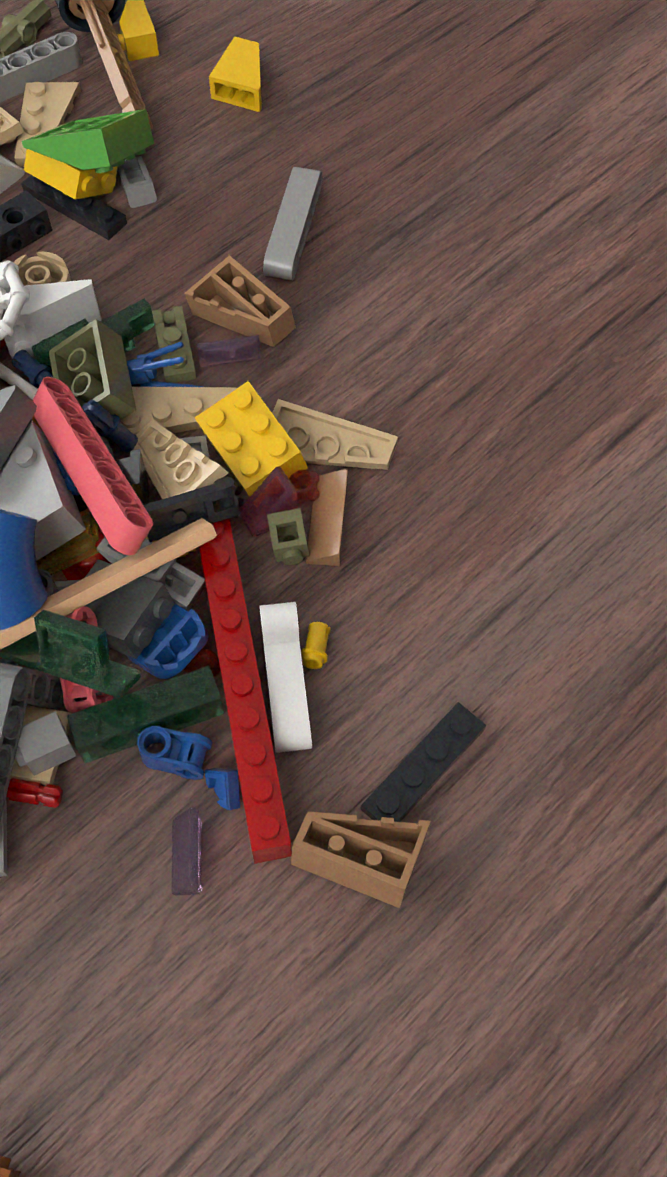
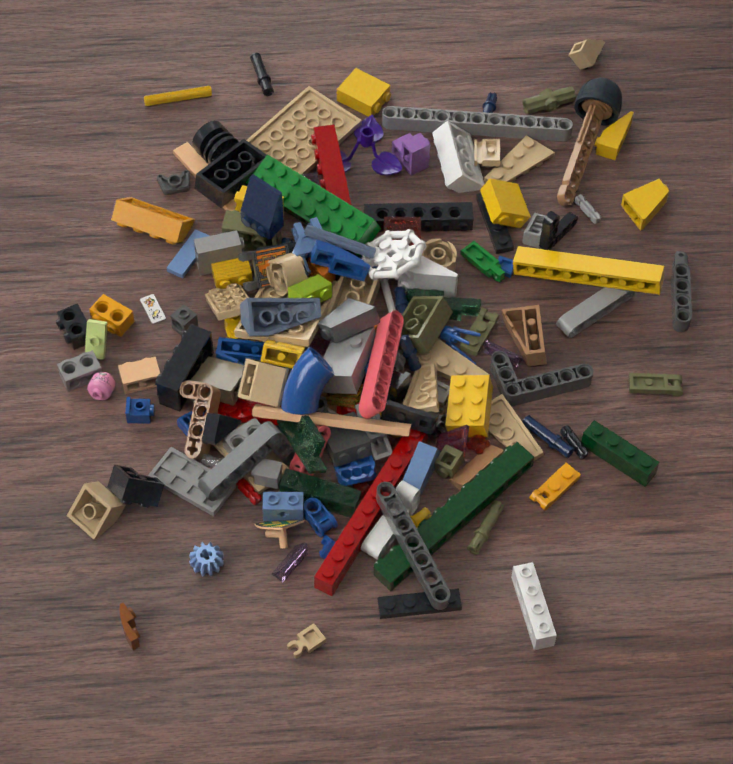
camera: 40 degrees right, 5 degrees down
(47, 972) = (214, 561): none -> light blue gear
(96, 141) = (526, 196): bright green slope -> none
(102, 255) = (483, 261): none -> green hinge
(107, 776) = (283, 506): none -> medium blue brick
(127, 816) = (277, 529): none -> light nougat shield
(135, 245) = (506, 265): none -> blue tile
(163, 159) = (555, 230): none -> black beam
(177, 121) = (588, 209): none -> light grey axle
(249, 181) = (588, 270): none -> yellow brick
(259, 568) = (421, 466): none -> medium blue slope
(309, 364) = (537, 382): none -> dark grey beam
(321, 956) = (308, 639): none -> tan plate
(361, 615) = (457, 512): none -> dark green brick
(361, 853) = (359, 614): medium nougat wedge -> none
(367, 705) = (414, 554): none -> dark grey beam
(375, 146) = (681, 292): none -> dark grey piece
(383, 414) = (550, 438): none -> dark blue pin
(418, 399) = (574, 442): none -> black axle
(418, 602) = (482, 533): none -> olive pin
(445, 266) = (655, 384): none -> olive plate
(448, 471) = (555, 486): none -> light orange plate
(489, 373) = (620, 453): none -> dark green brick
(577, 649) = (533, 606): none -> white brick

